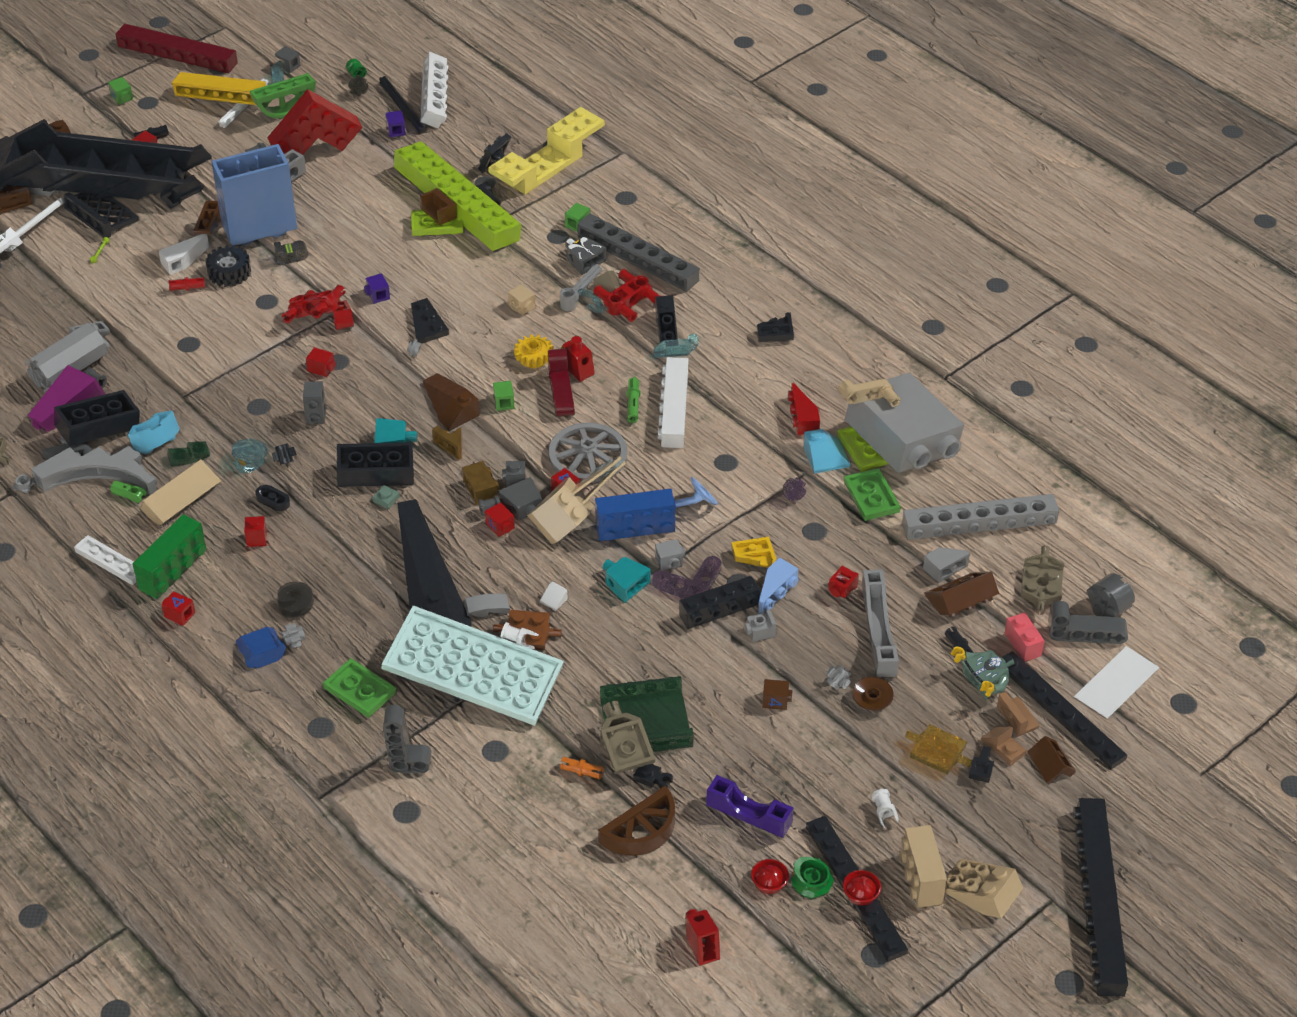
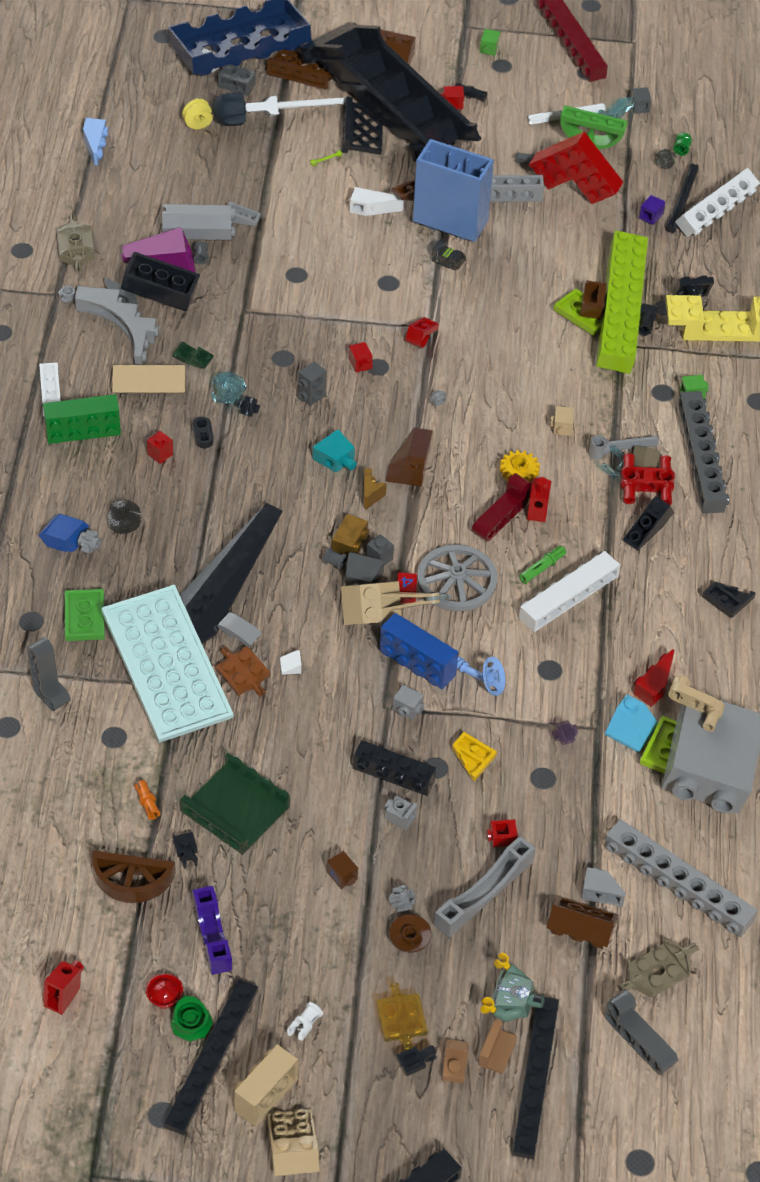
camera: 45 degrees right, 5 degrees up
(127, 491) = (121, 351): bright green bar -> none
(154, 432) = (185, 321): medium azure brick -> none
(178, 608) = (47, 461): red brick -> none
(186, 284) = (348, 227): red pin -> none
(215, 87) = (555, 84): yellow brick -> none
(228, 266) = (392, 234): black wheel -> none
(313, 304) = (406, 308): red piece -> none
(375, 464) = (295, 463): black brick -> none
(377, 288) = (471, 331): dark purple brick -> none
(386, 497) = (278, 494): sand green plate -> none
(427, 322) = (475, 385): black wing -> none
(499, 519) = (327, 575): red brick -> none
(503, 395) = (452, 484): bright green brick -> none
(516, 635) = (222, 668): white piece -> none
(585, 254) = (659, 421): dark grey torso -> none
(625, 740) = (189, 804): dark tan plate -> none
(626, 577) = (356, 692): teal torso -> none
(676, 347) = (632, 551): clear light blue piece -> none
(690, 586) = (400, 741): clear purple beam -> none
(778, 581) = (454, 790): light blue slope -> none
(861, 887) = (204, 1057): red hat -> none
(872, 494) = (621, 787): bright green plate -> none
(957, 640) = (528, 957): black pin -> none
(1024, 637) = (580, 996): coral brick -> none
(1050, 759) = (474, 1104): reddish brown panel -> none
(1111, 596) = (687, 1028): dark grey brick -> none
(1116, 682) = (611, 1097): white sticker -> none

